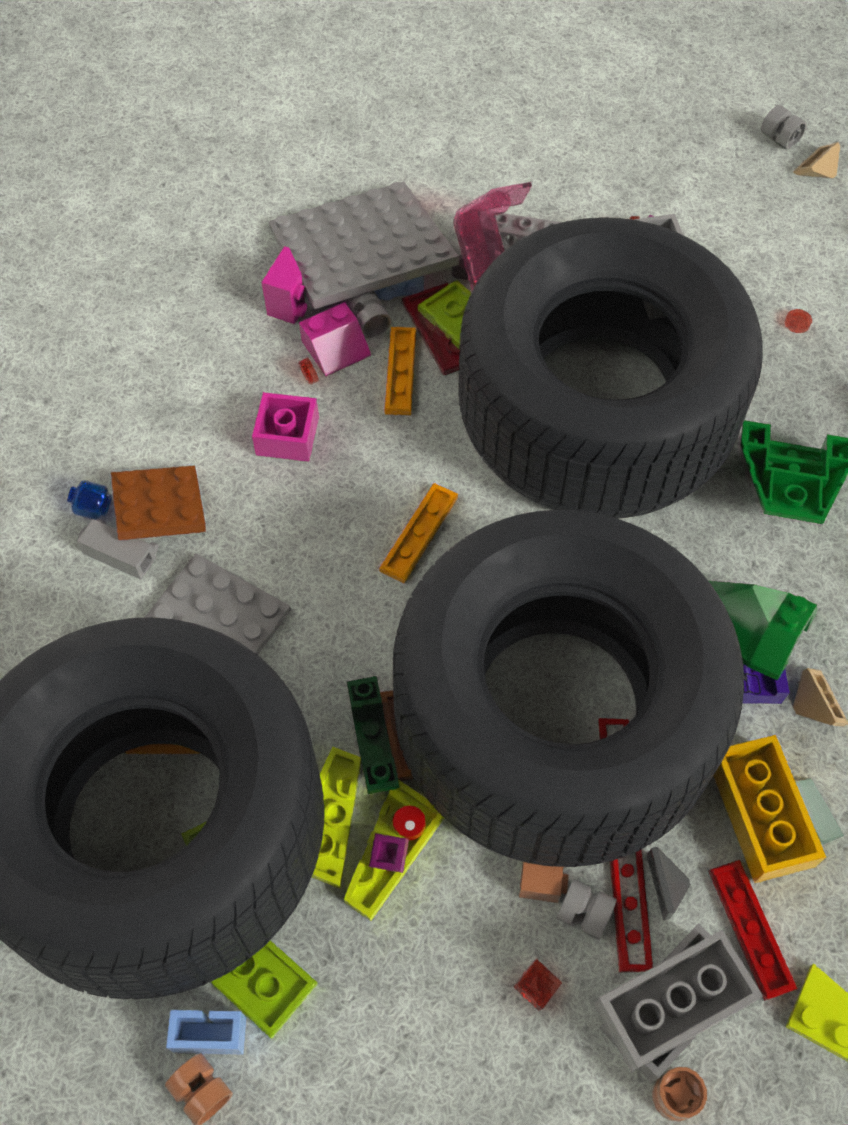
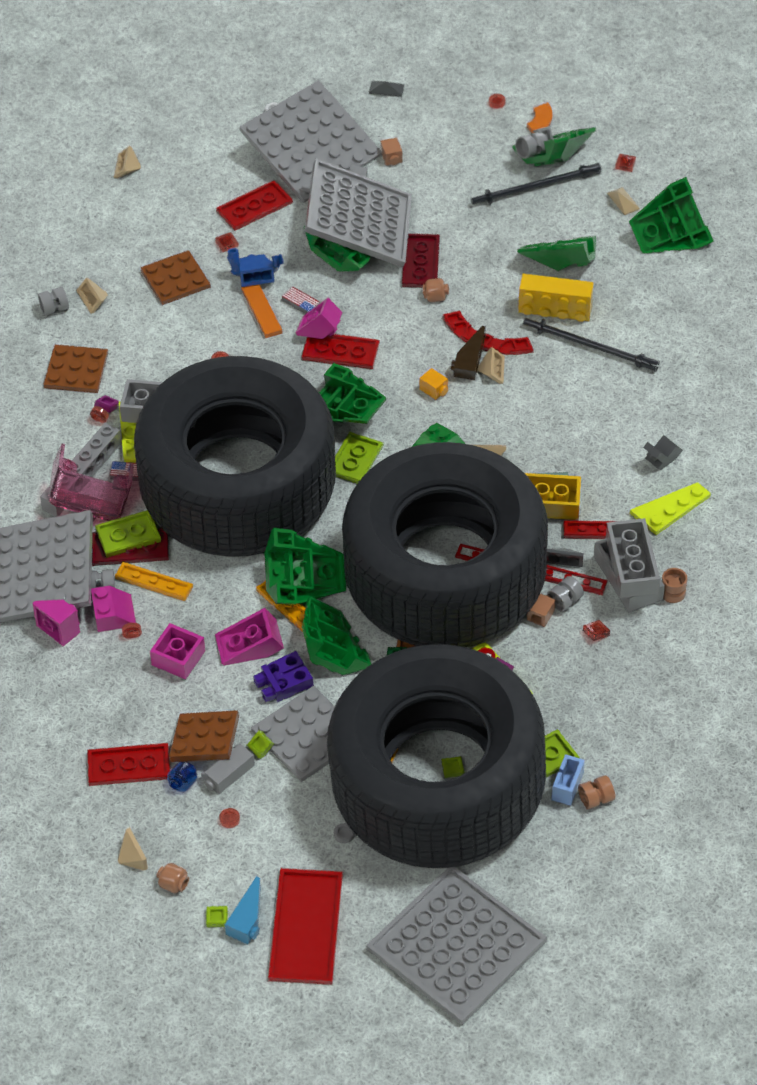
camera: 70 degrees left, 10 degrees down
(43, 577) = (229, 818): none -> clear red tile
(102, 436) = (128, 764): none -> red tile
(169, 572) = (260, 744): none -> lime tile
(288, 565) = (284, 678): none -> dark purple hips
(341, 504) = (250, 639): none -> dark pink slope
(363, 594) = (330, 641): none -> green wedge
(459, 505) = (301, 568): none -> green wedge
(697, 185) = (76, 368): none -> dark orange plate
(716, 529) = (356, 457): none -> lime tile

